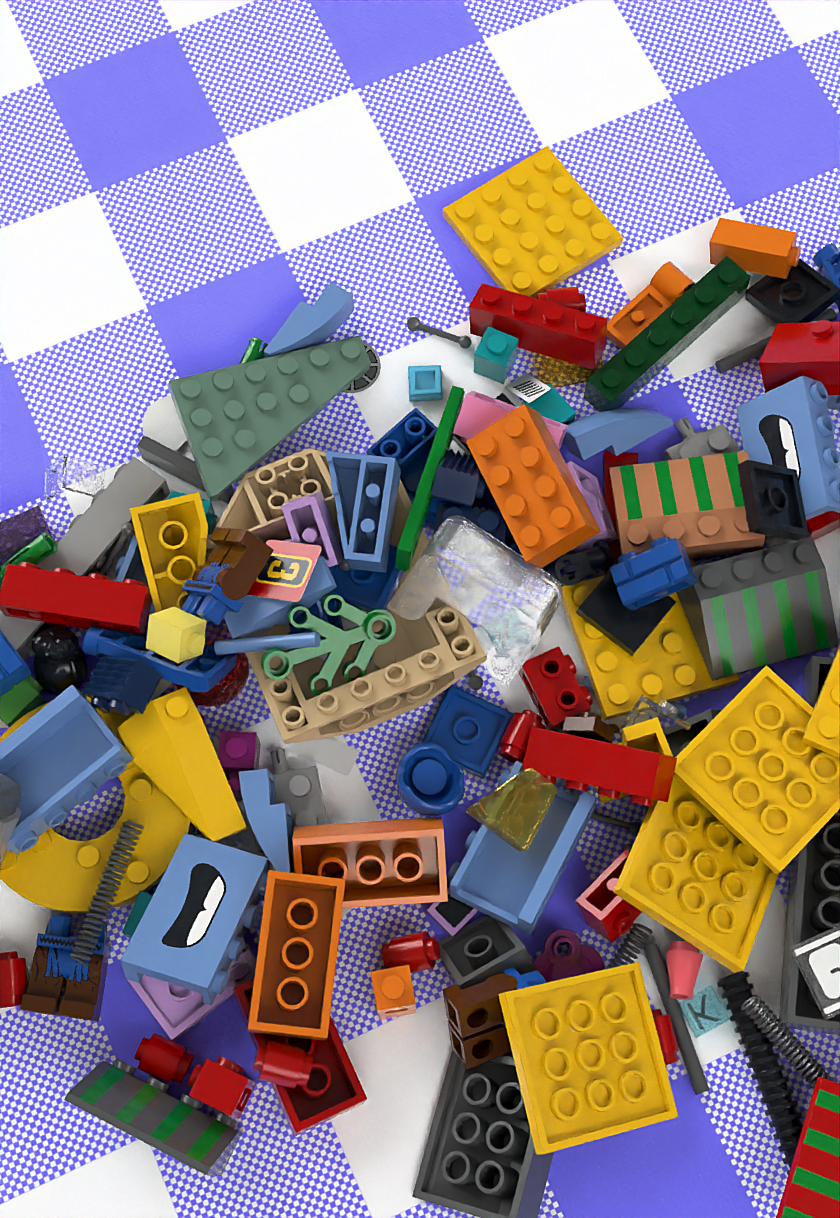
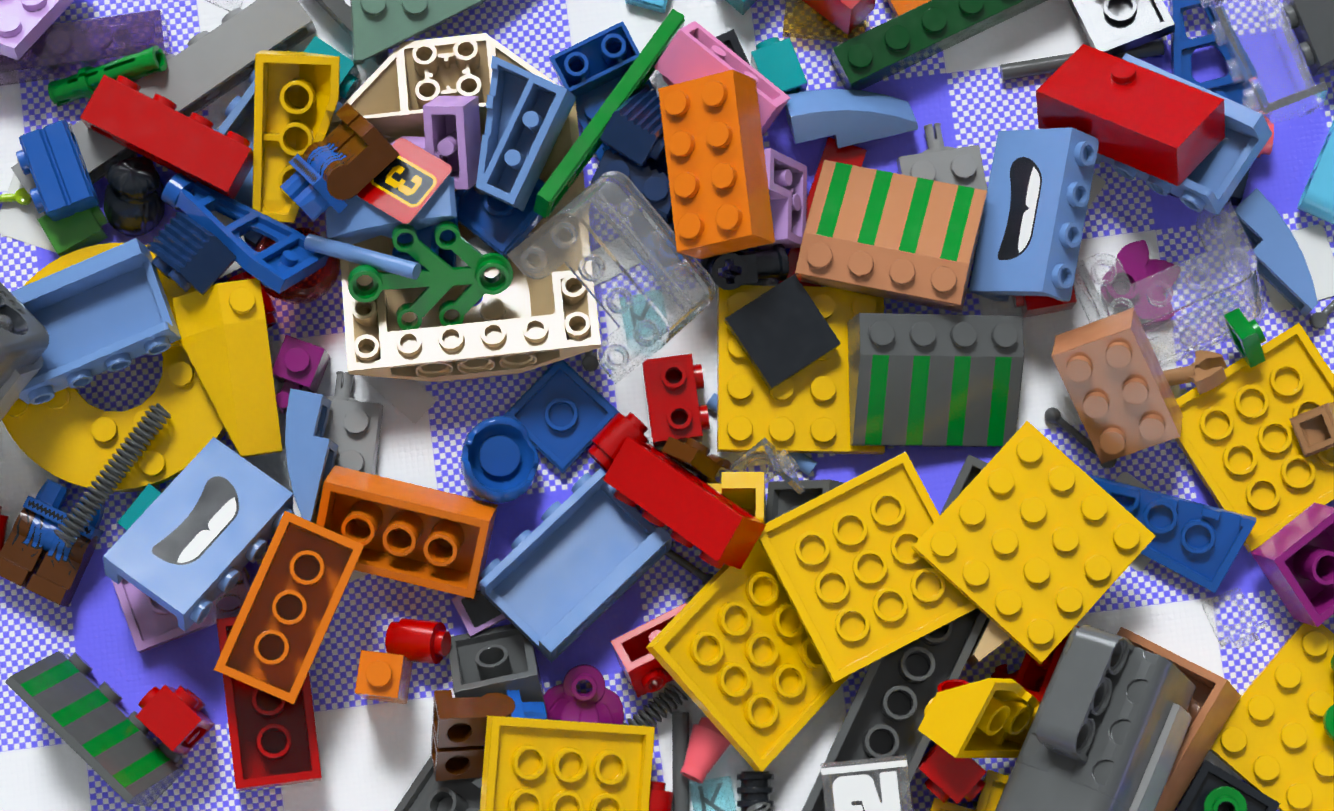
camera: 20 degrees right, 10 degrees up
(127, 531) = (209, 108): dark grey hinge -> none
(163, 1058) = (124, 668): red brick -> none
(176, 634) = (265, 215): light yellow brick -> none
(283, 1064) = (242, 716): red brick -> none
(516, 808) = (580, 520): clear yellow wing -> none
(527, 387) = (764, 33): white sticker -> none
(653, 573) = (818, 307): blue brick -> none
(772, 500) = (982, 265): black plate -> none

